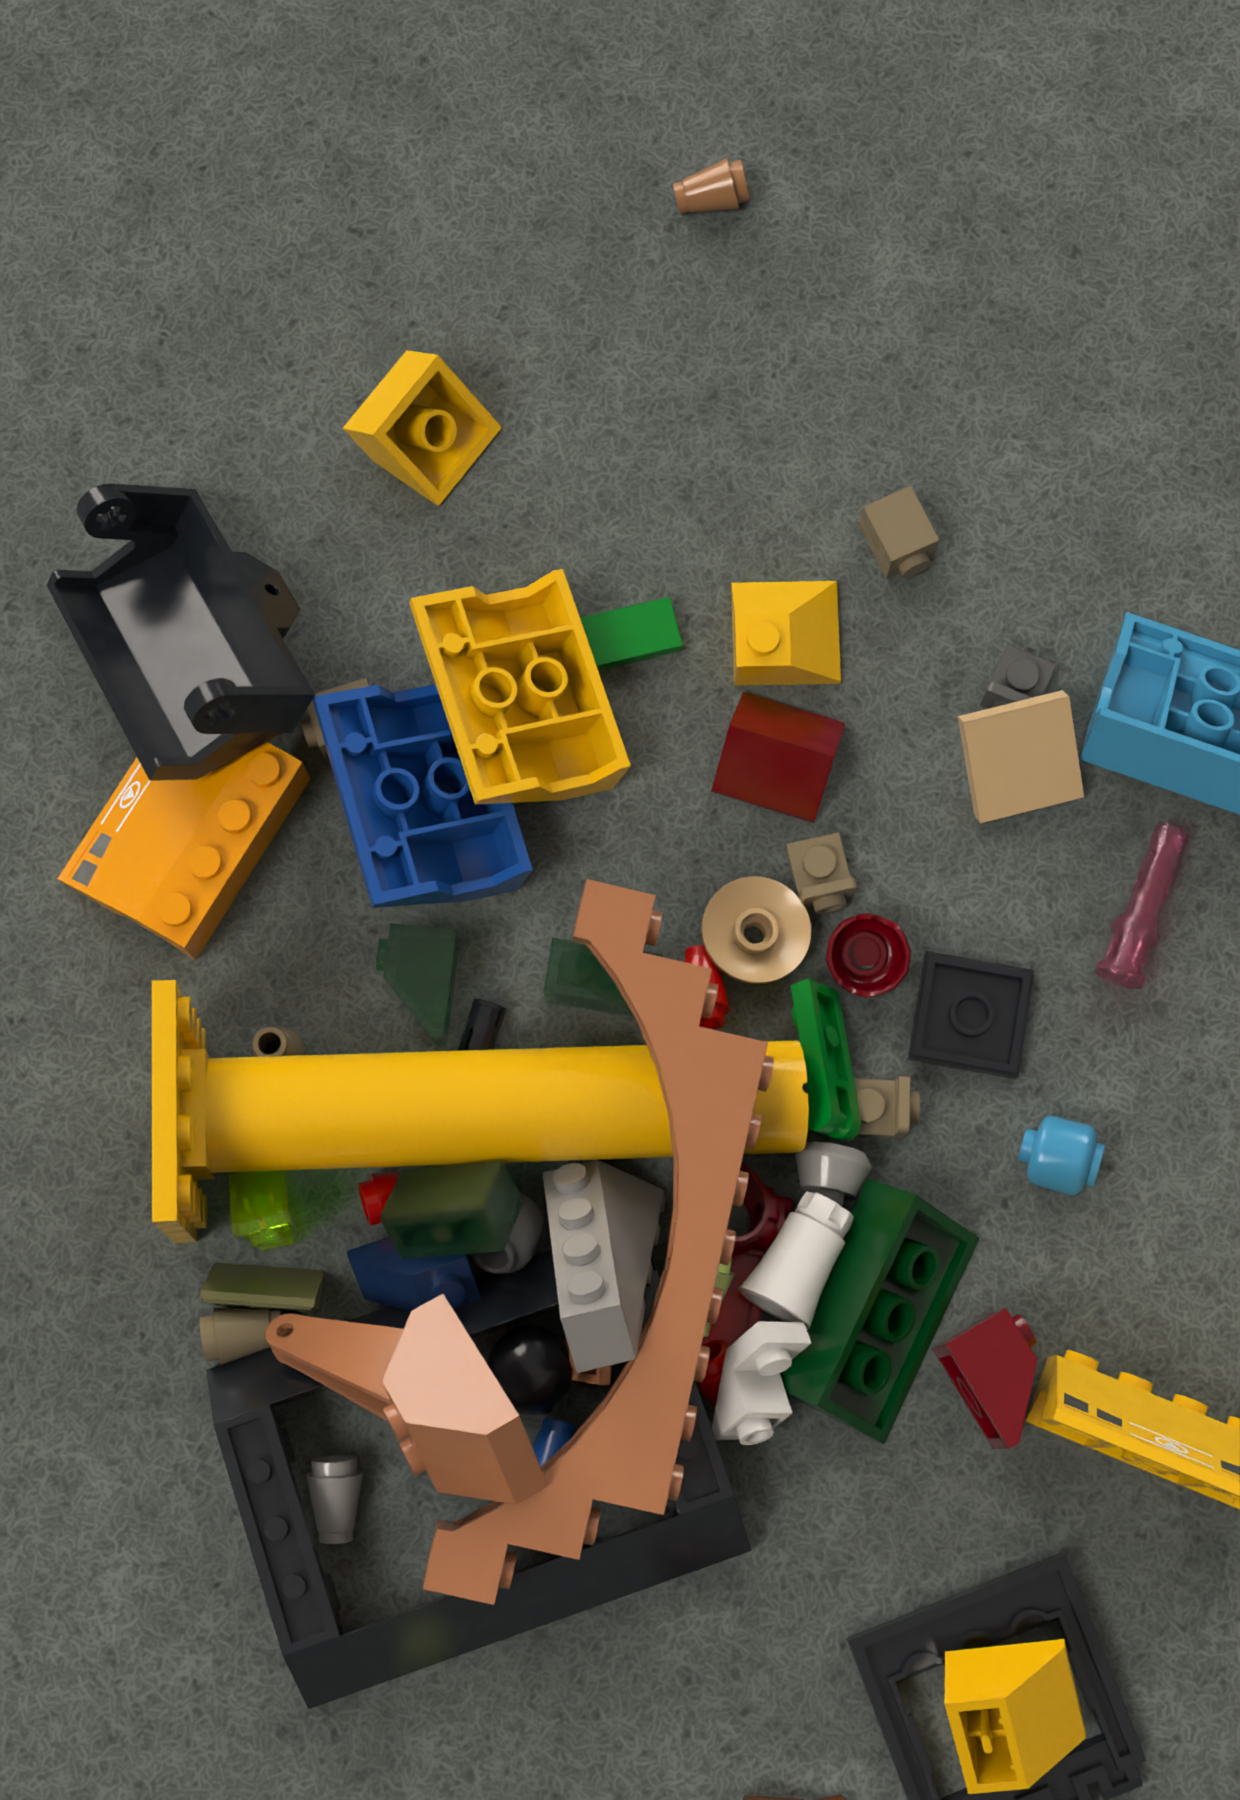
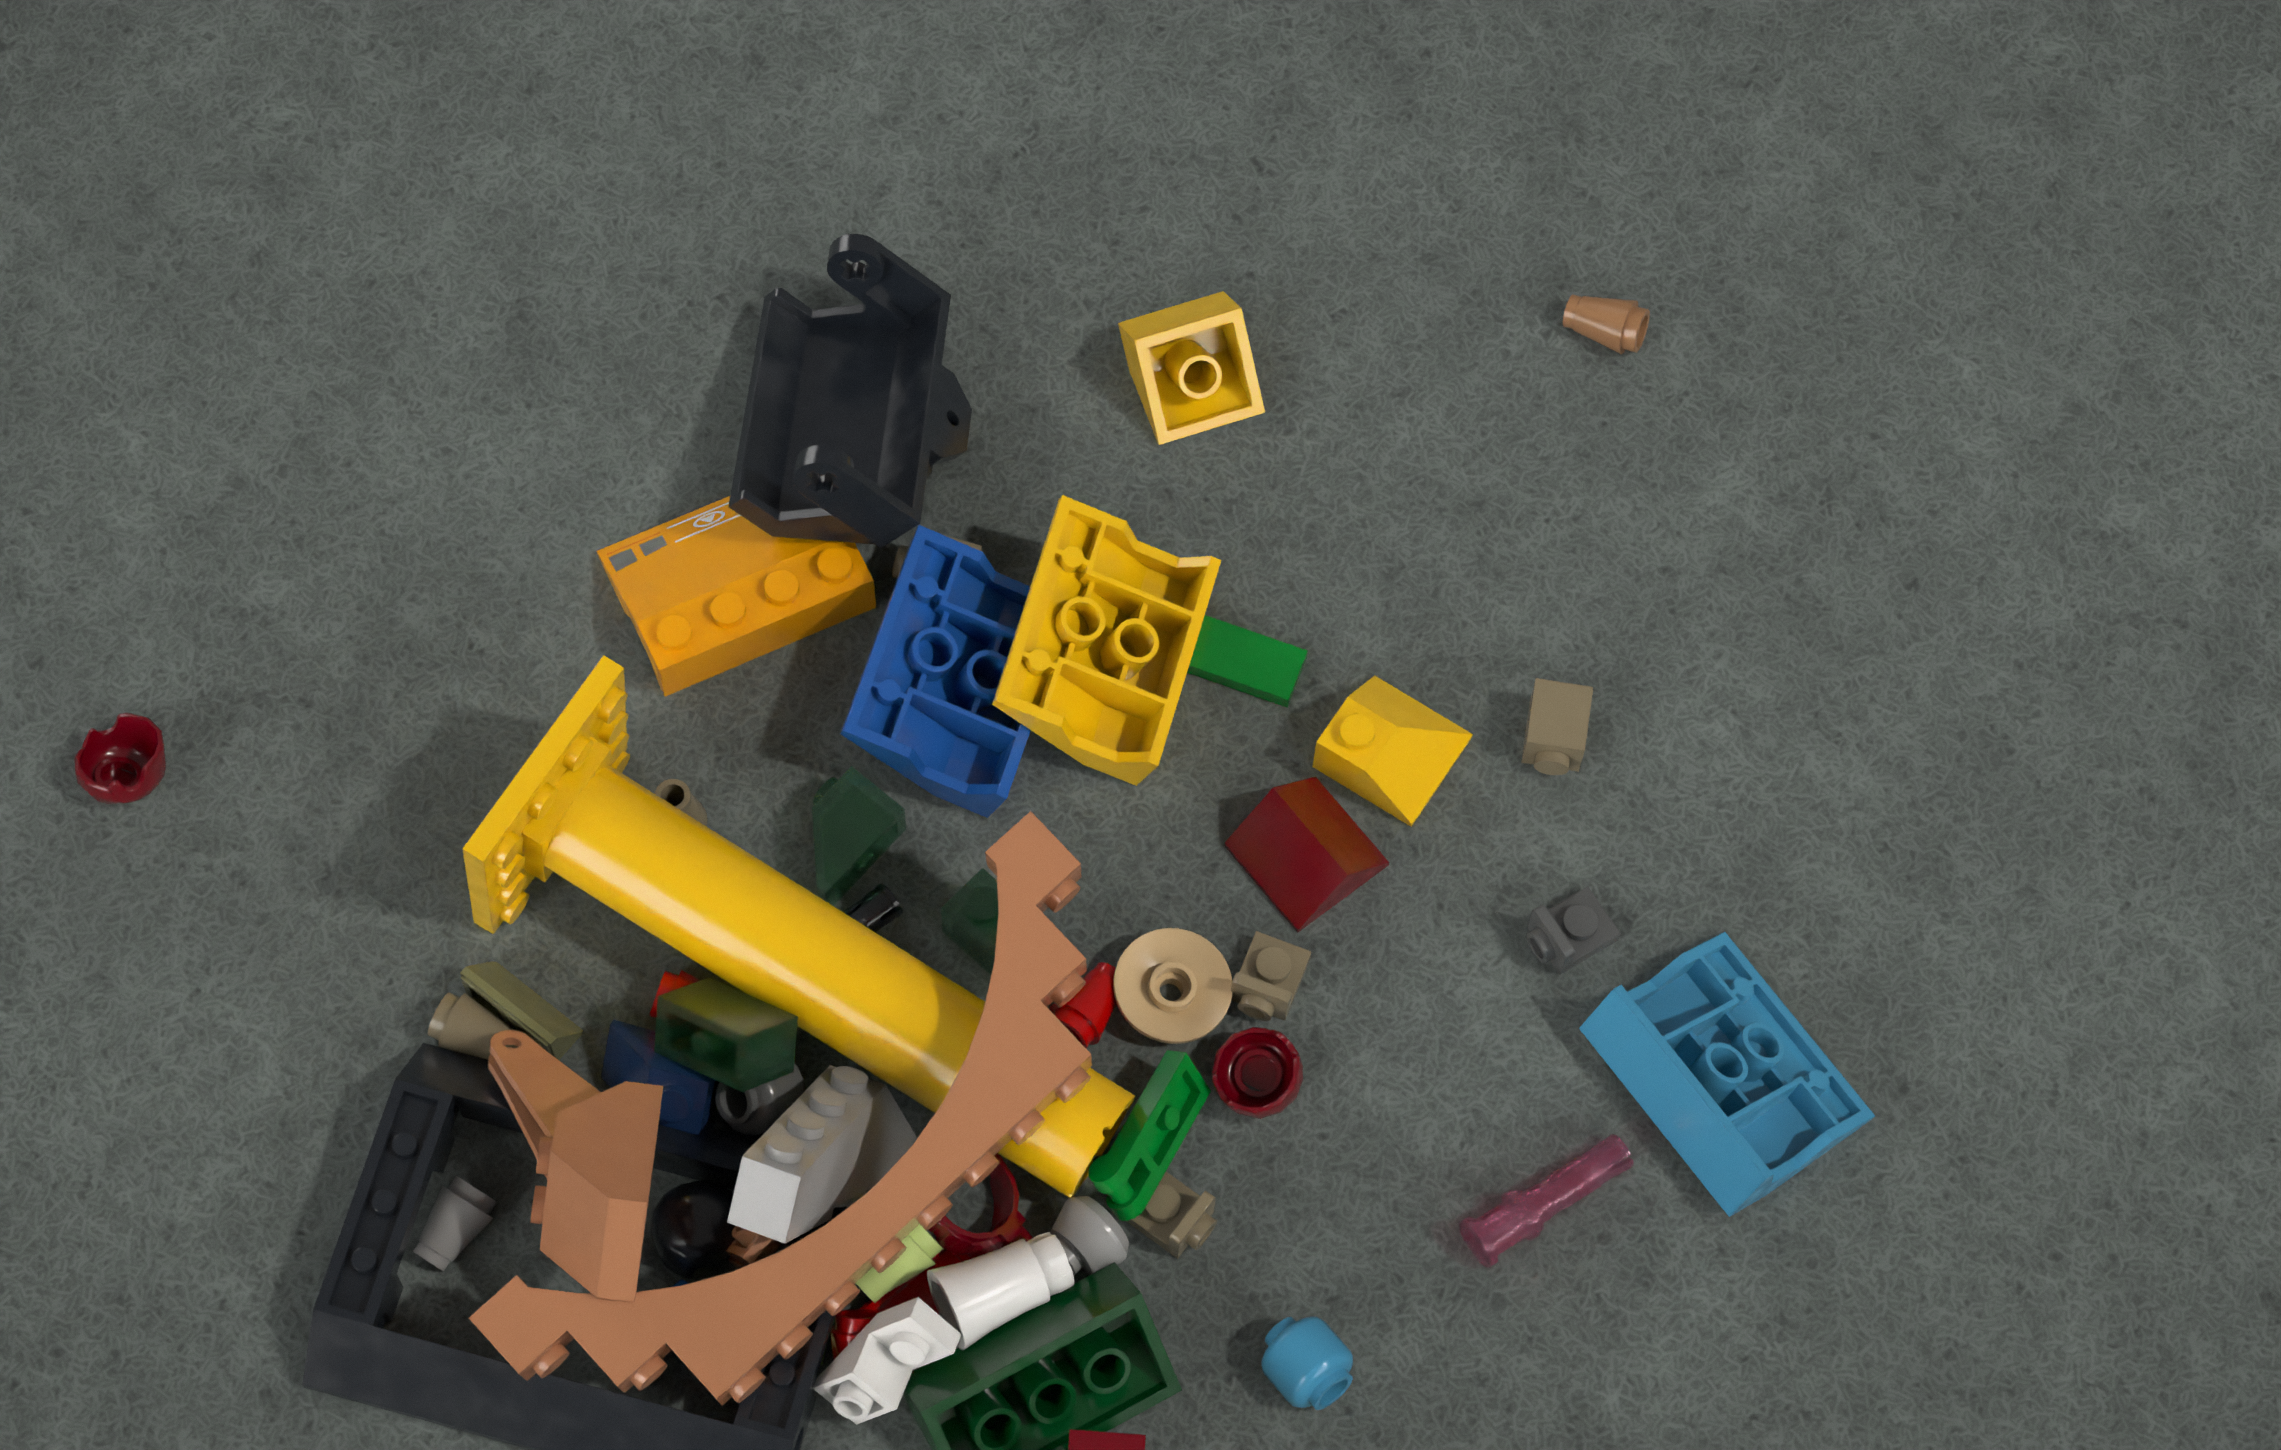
camera: 30 degrees right, 10 degrees down
(265, 1209) = (571, 937): clear neon green slope -> none
(971, 1015) = (1317, 1190): black tile -> none
(1021, 756) = (1524, 989): tan tile -> none

